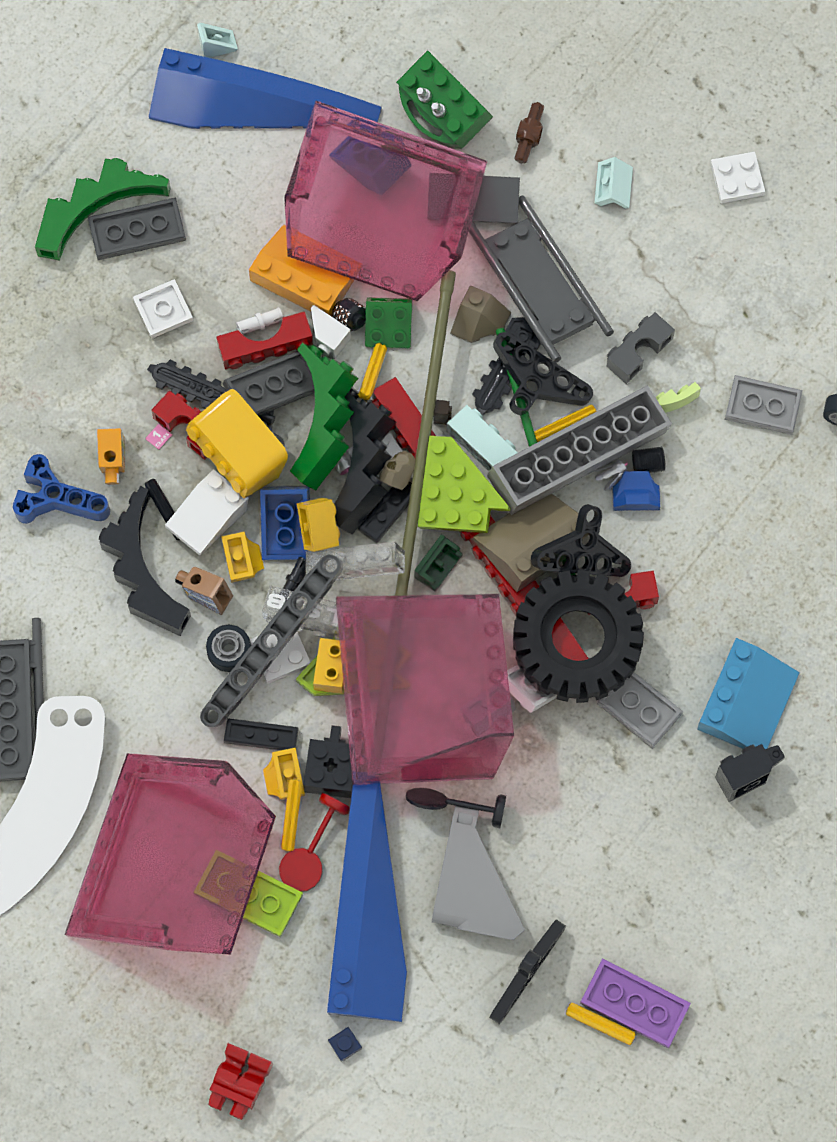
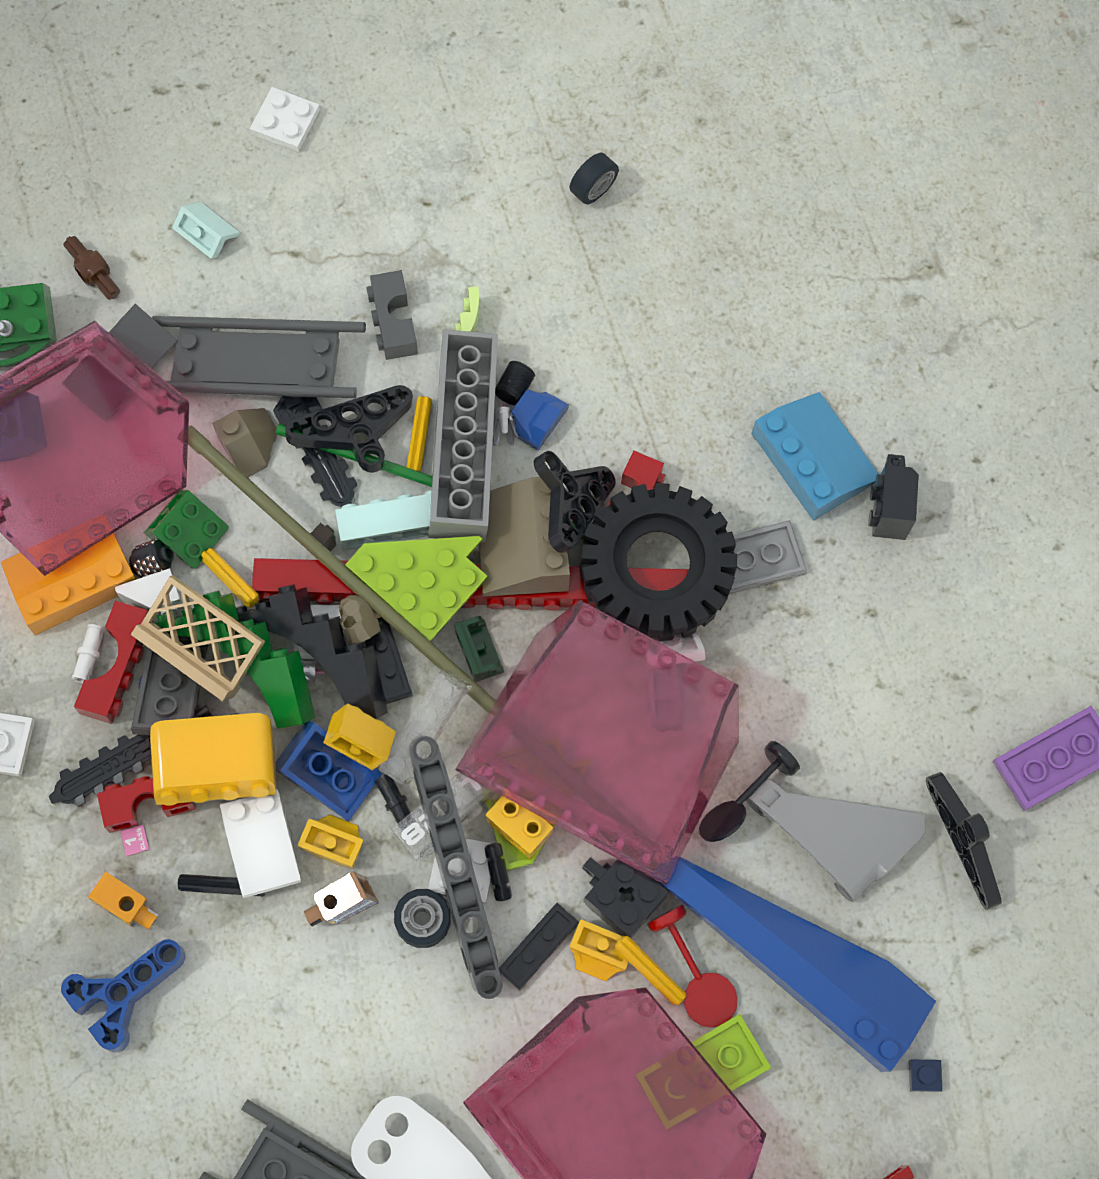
camera: 60 degrees left, 0 degrees up
(125, 542) = (312, 966): black arch -> none
(291, 675) = (498, 872): none -> black axle
(295, 381) = (191, 662): none -> tan fence
(600, 1023) = (1057, 805): yellow axle -> none
(763, 405) = (530, 247): light grey tile -> none

